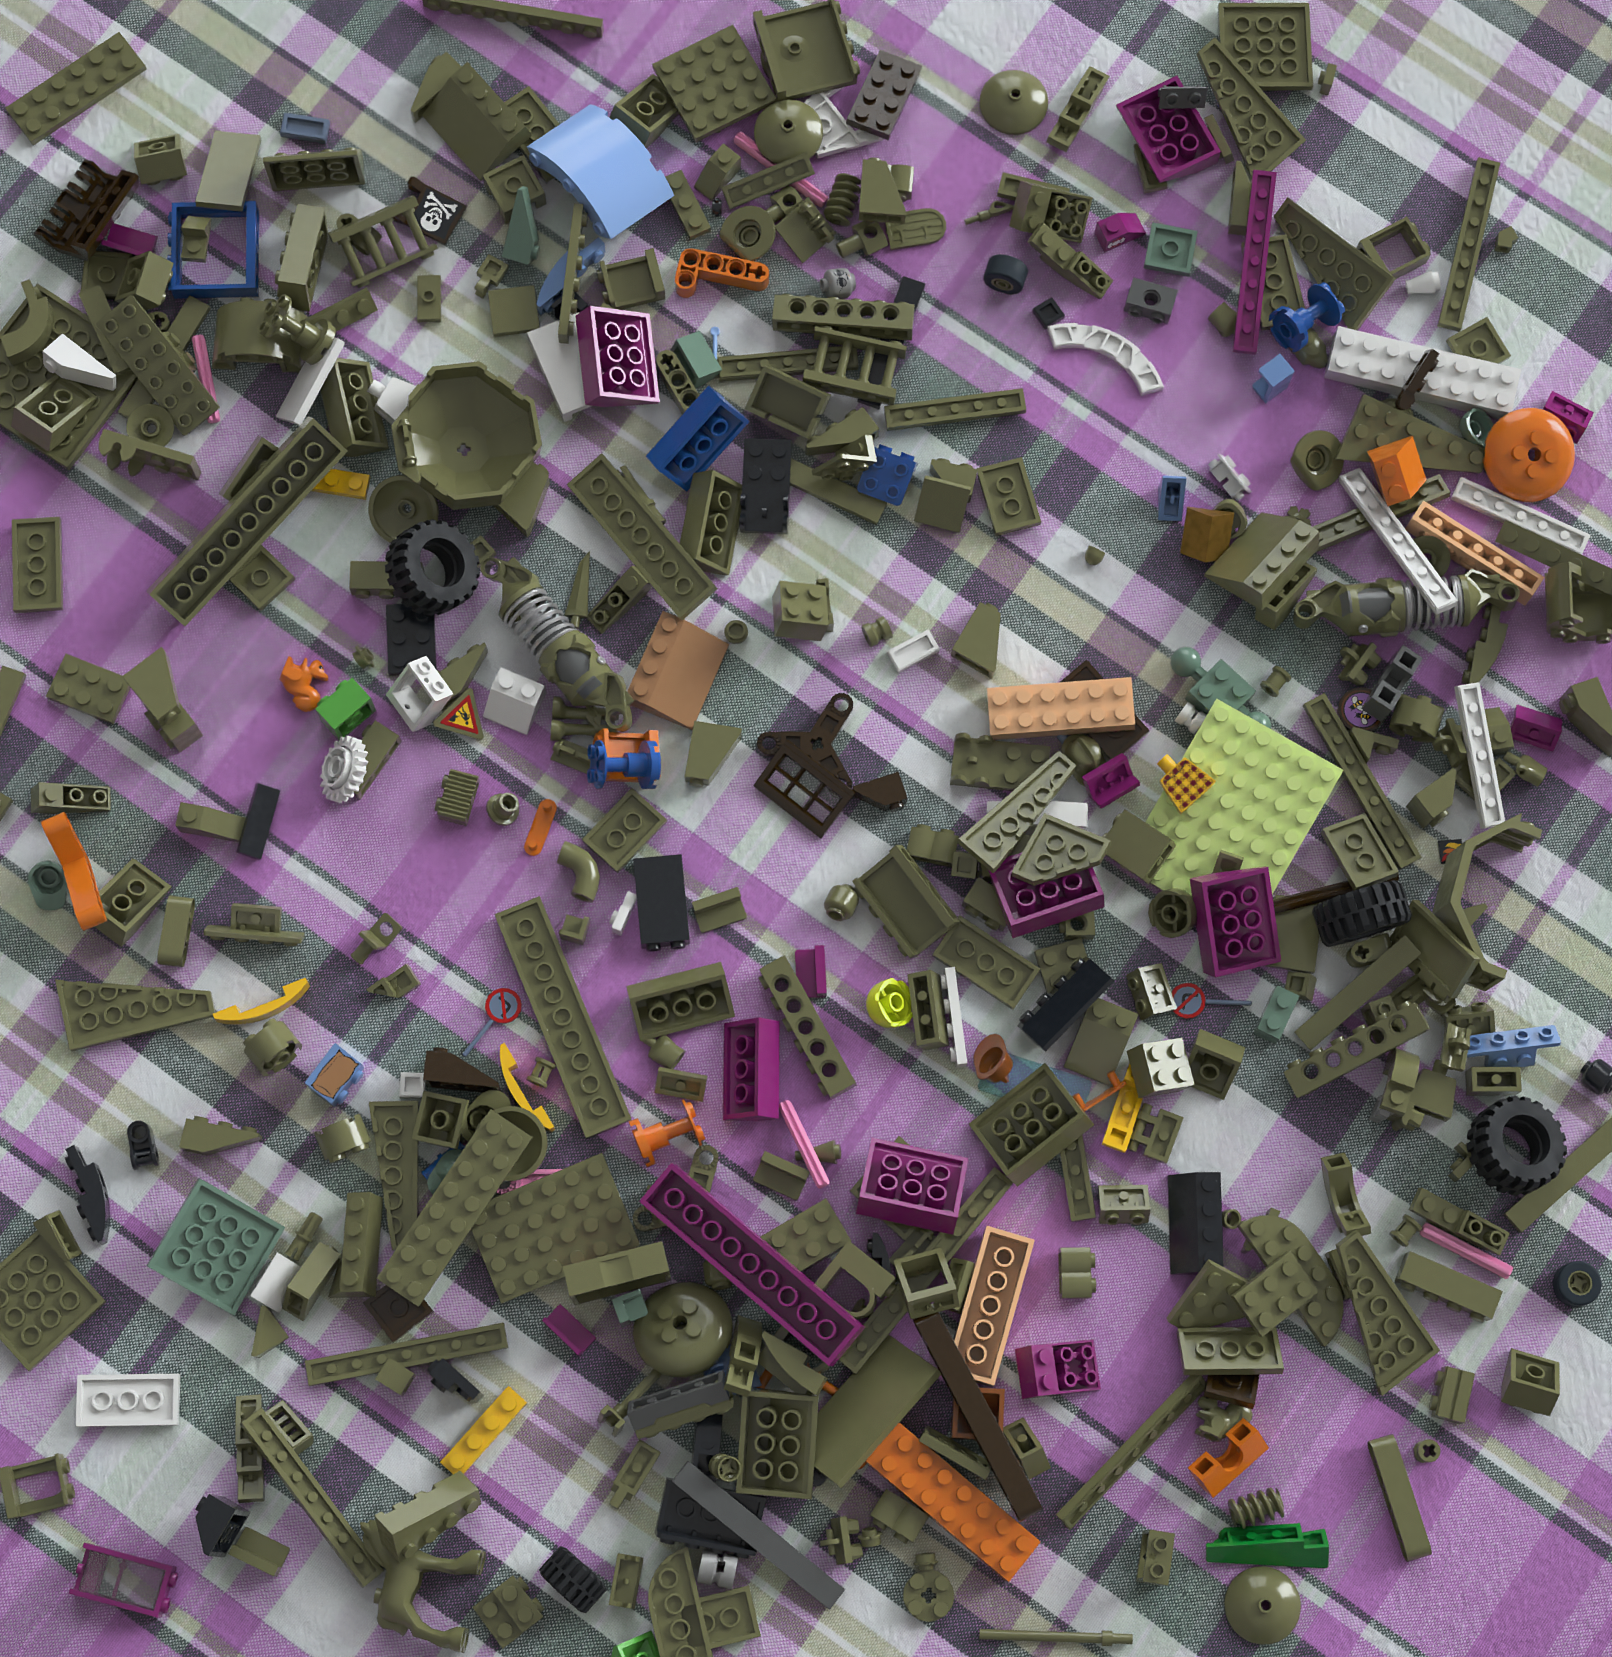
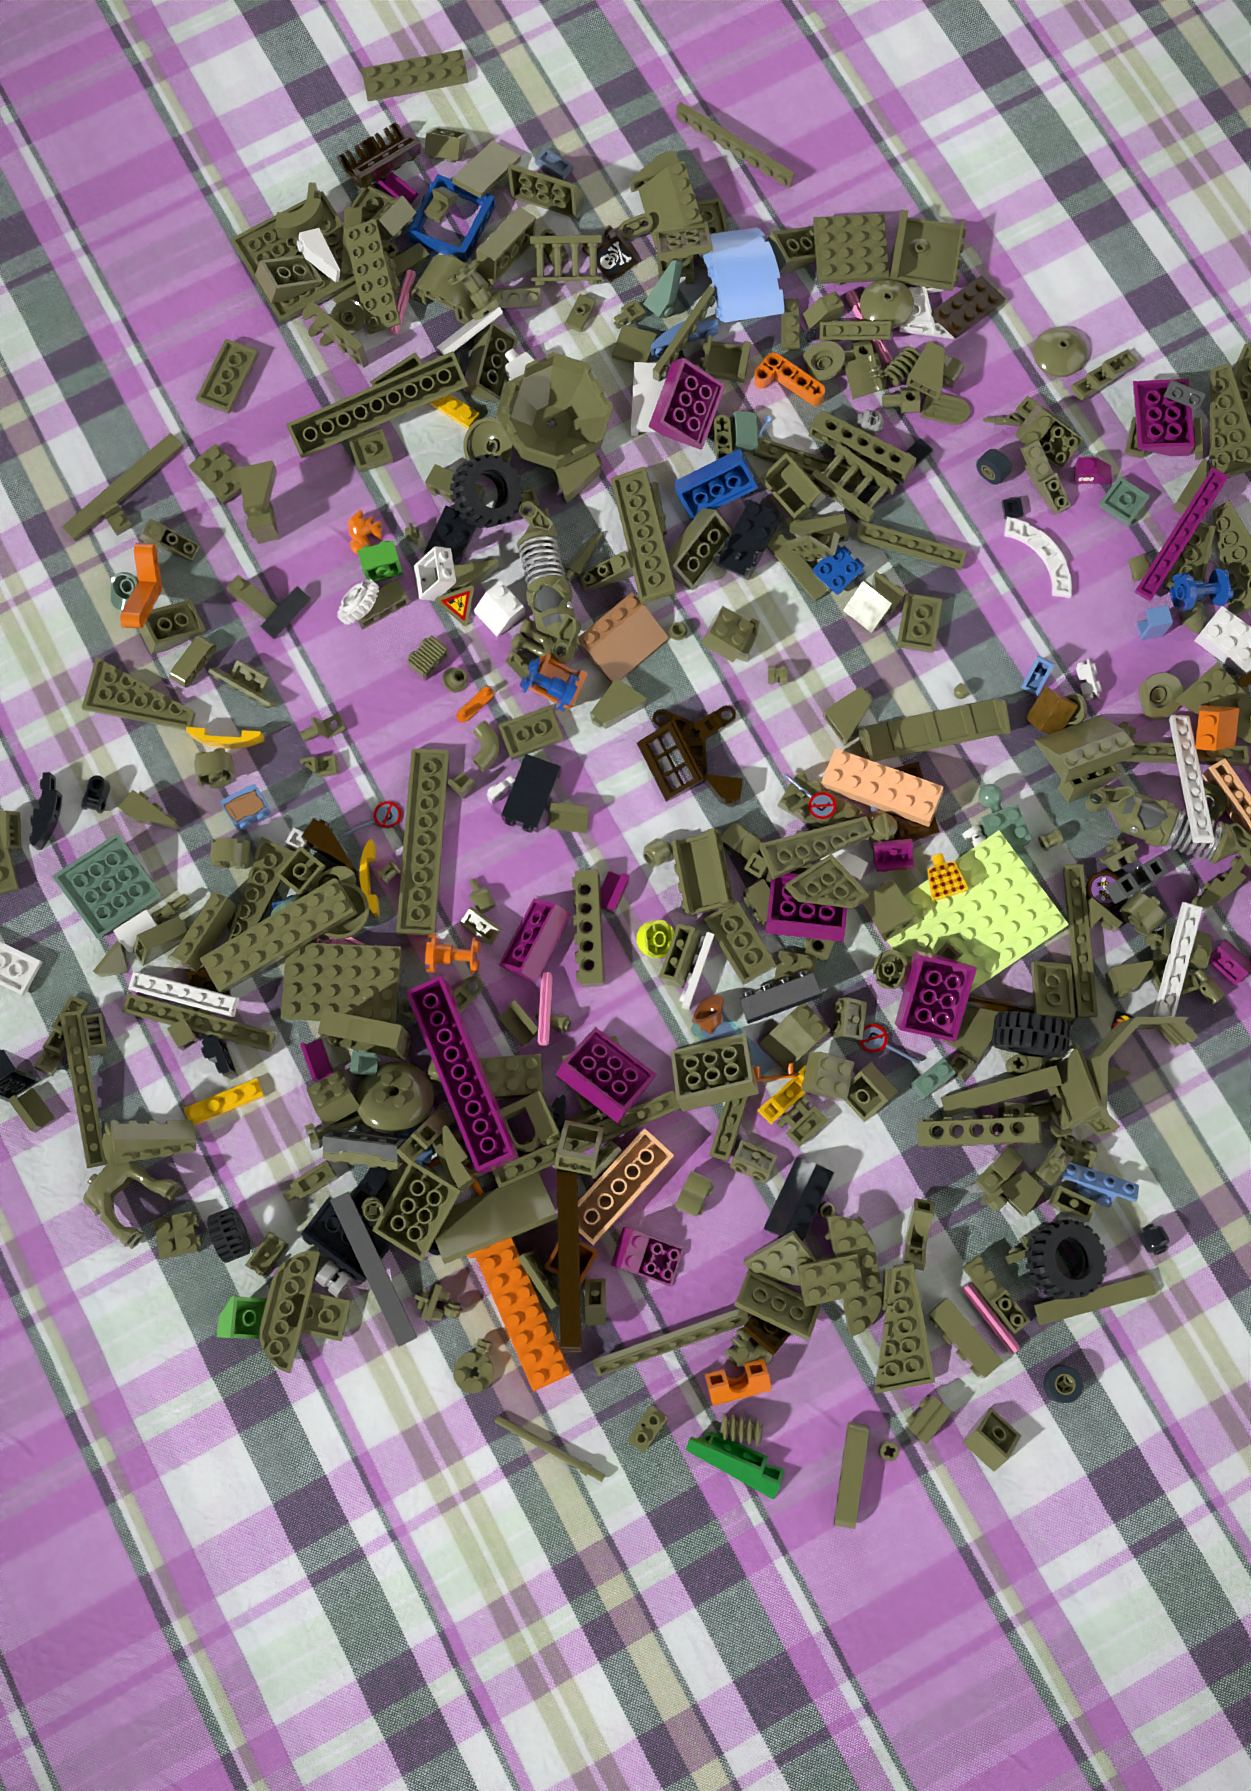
camera: 35 degrees right, 0 degrees up
(372, 1329) = (183, 993): none -> white tile
(444, 162) = (636, 225): none -> olive plate
(518, 163) = (683, 241): none -> olive plate
(613, 1364) = (333, 1098): none -> olive brick
(680, 1001) = (509, 868): olive slope -> none
(899, 1516) = (480, 1305): olive brick -> none
(913, 651) = (797, 700): white tile -> none
(1001, 760) = (820, 805): none -> piece
(1085, 613) = (934, 729): none -> olive piece
(1144, 290) = (1089, 521): dark grey brick -> none
(1244, 1607) = (711, 1486): olive dish -> none
(1405, 1230) = (952, 1281): olive bush -> none

